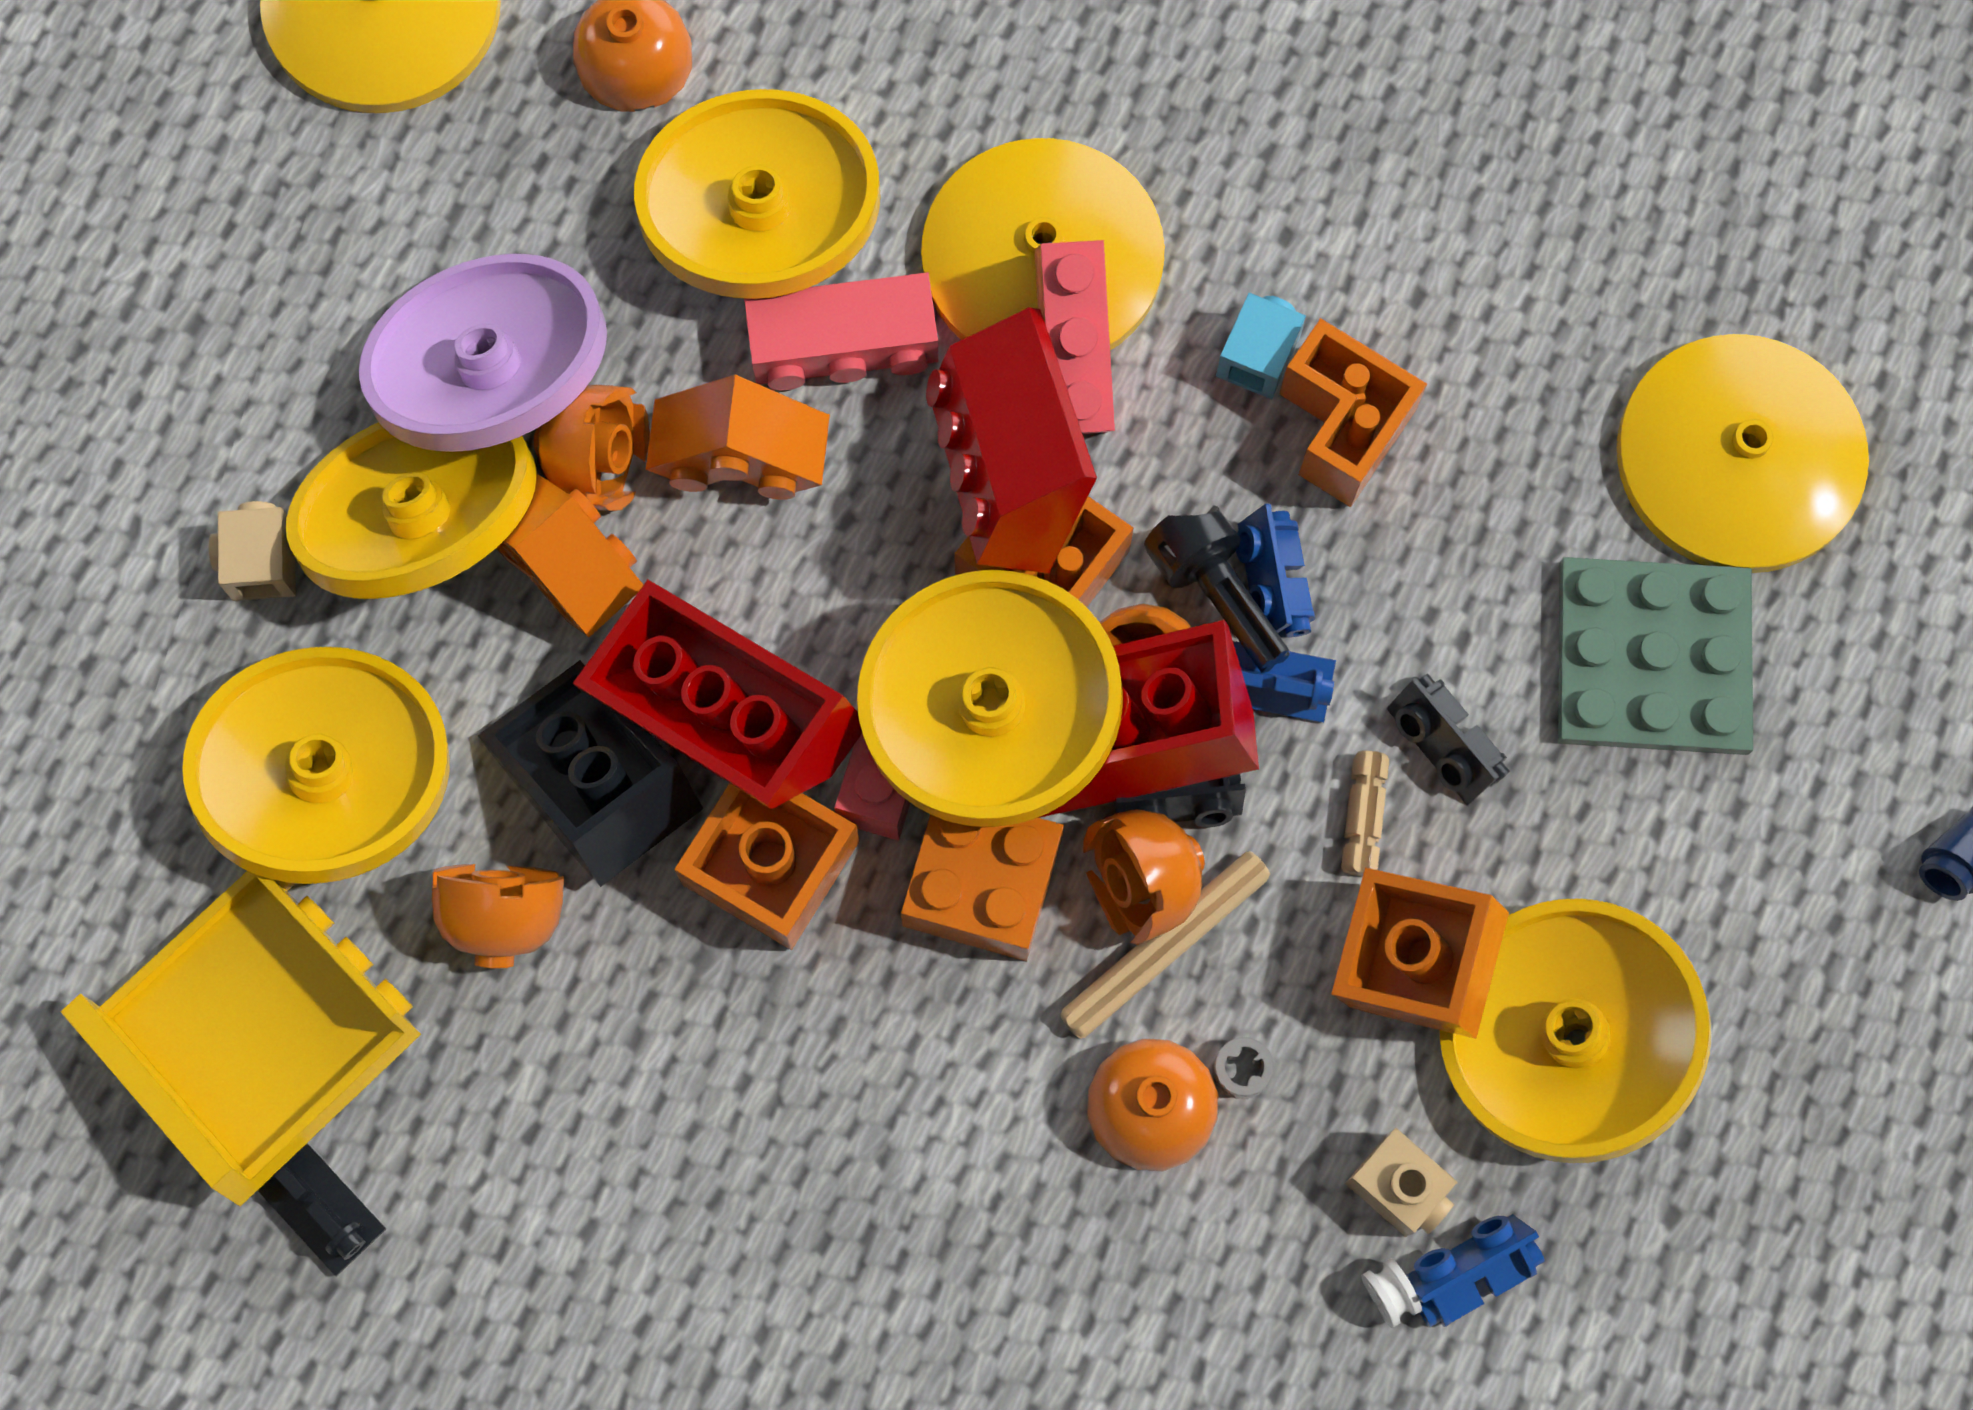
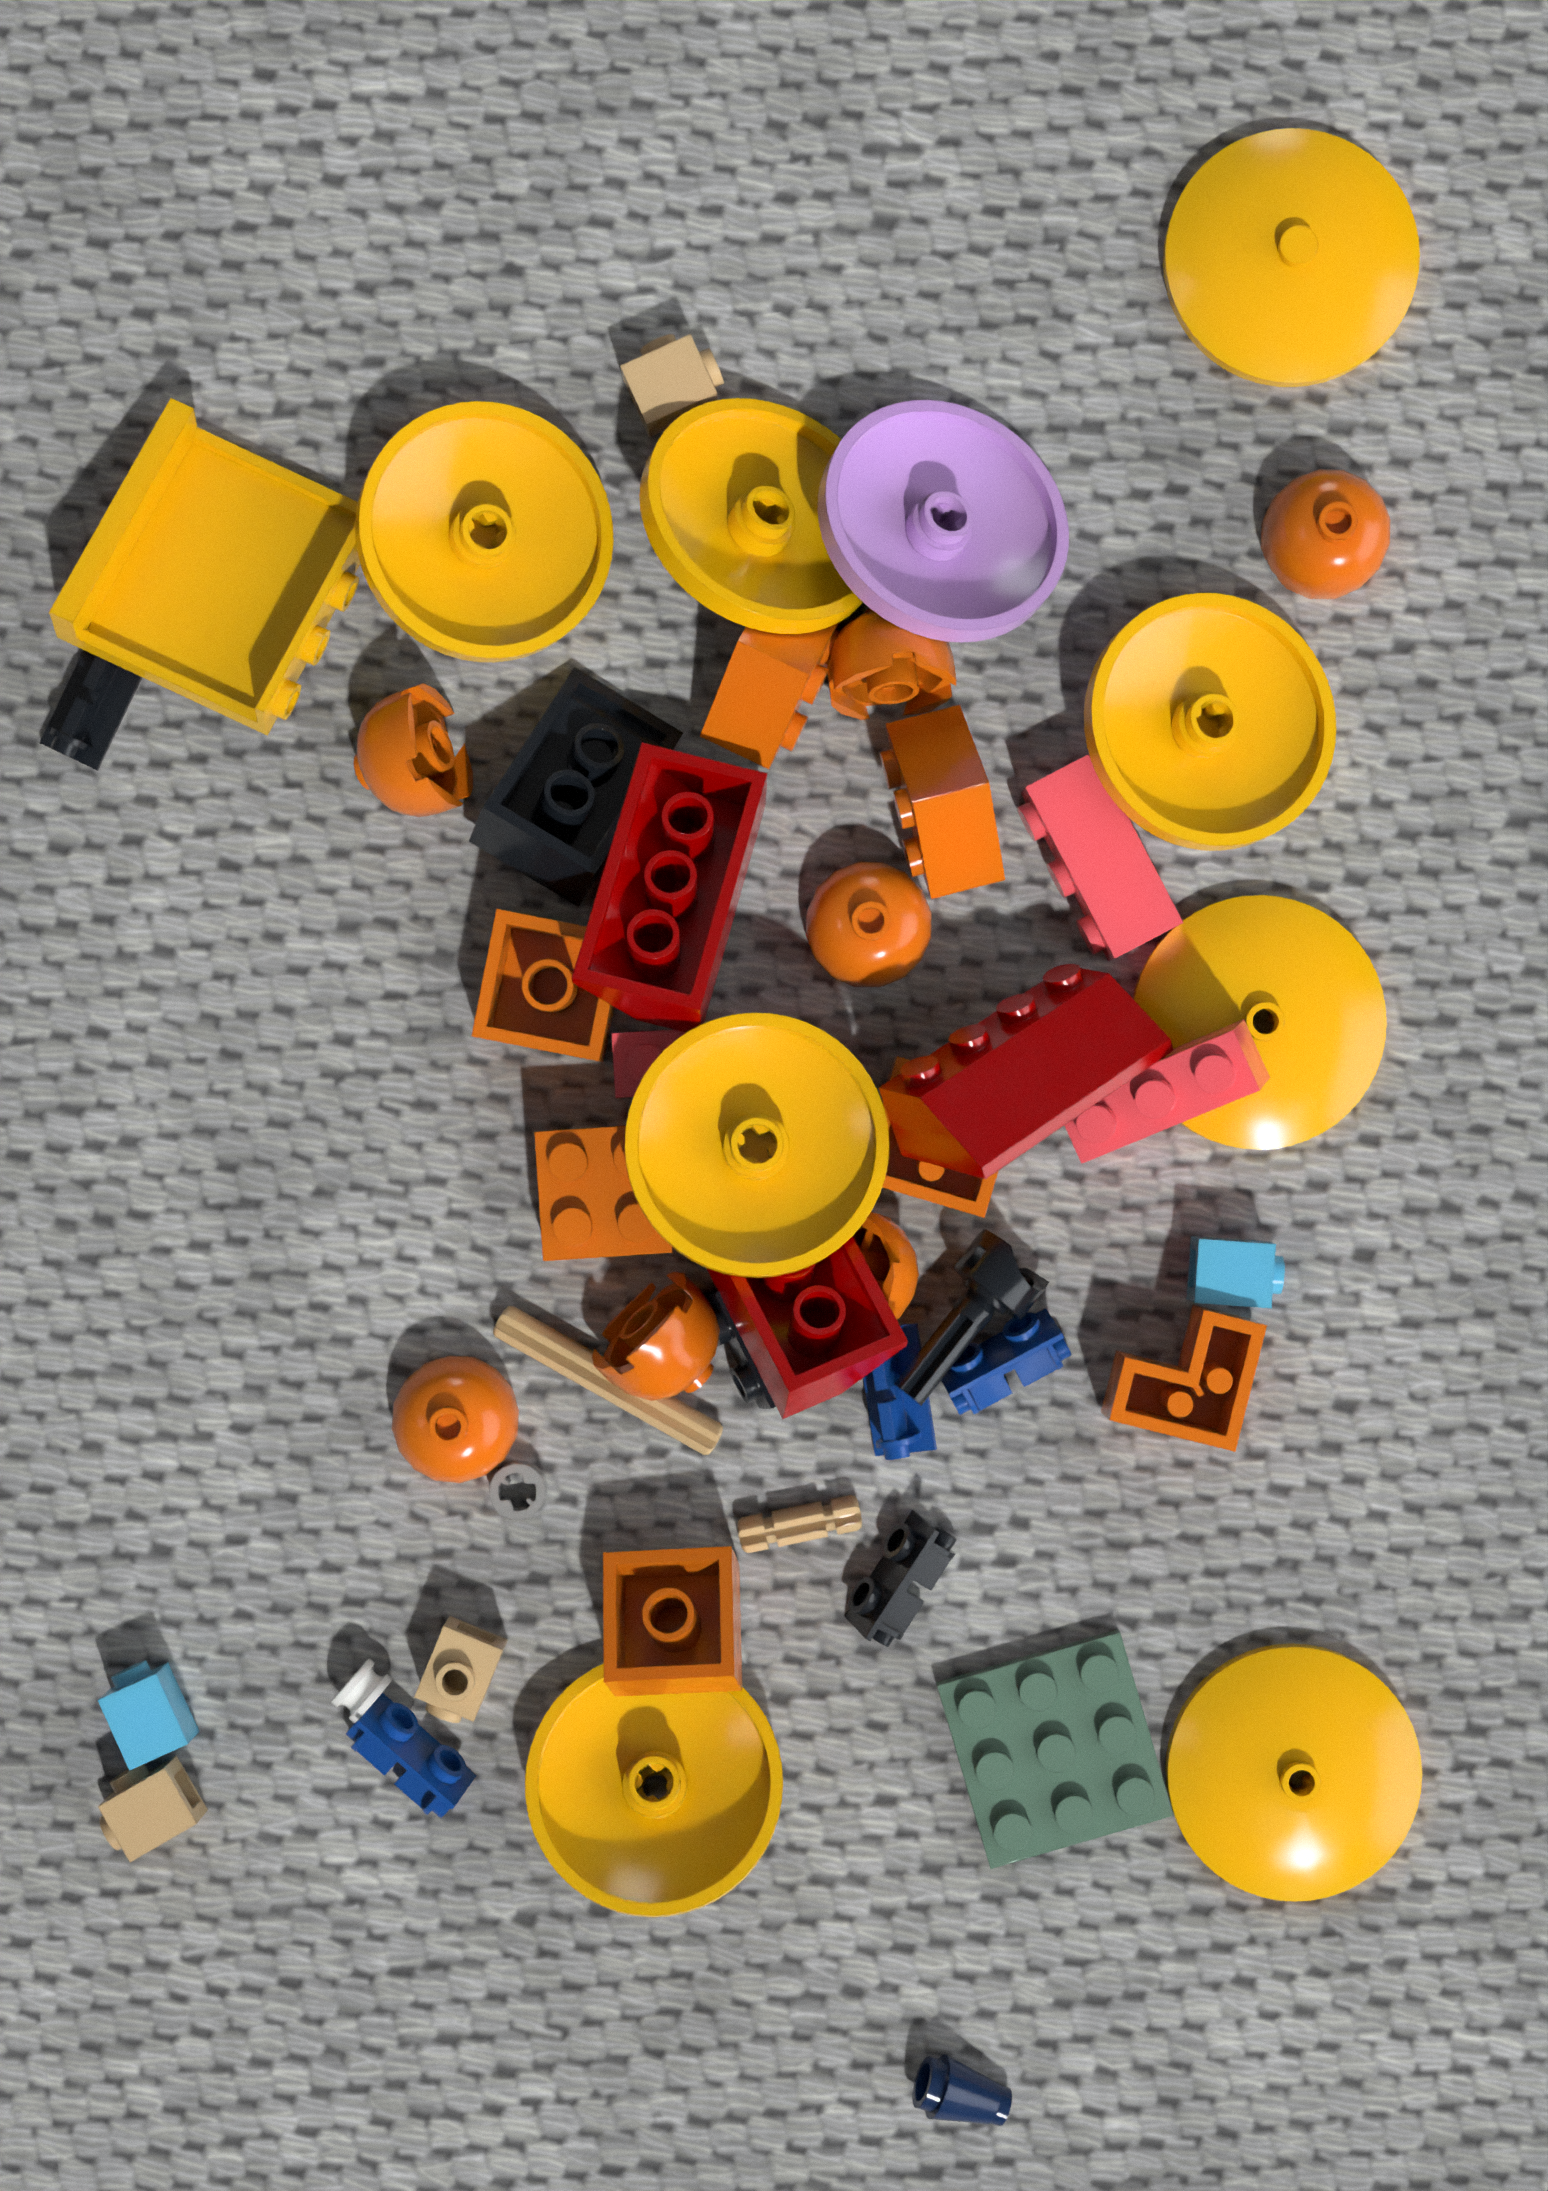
camera: 70 degrees right, 15 degrees up
(823, 553) = (868, 924): none -> orange cylinder

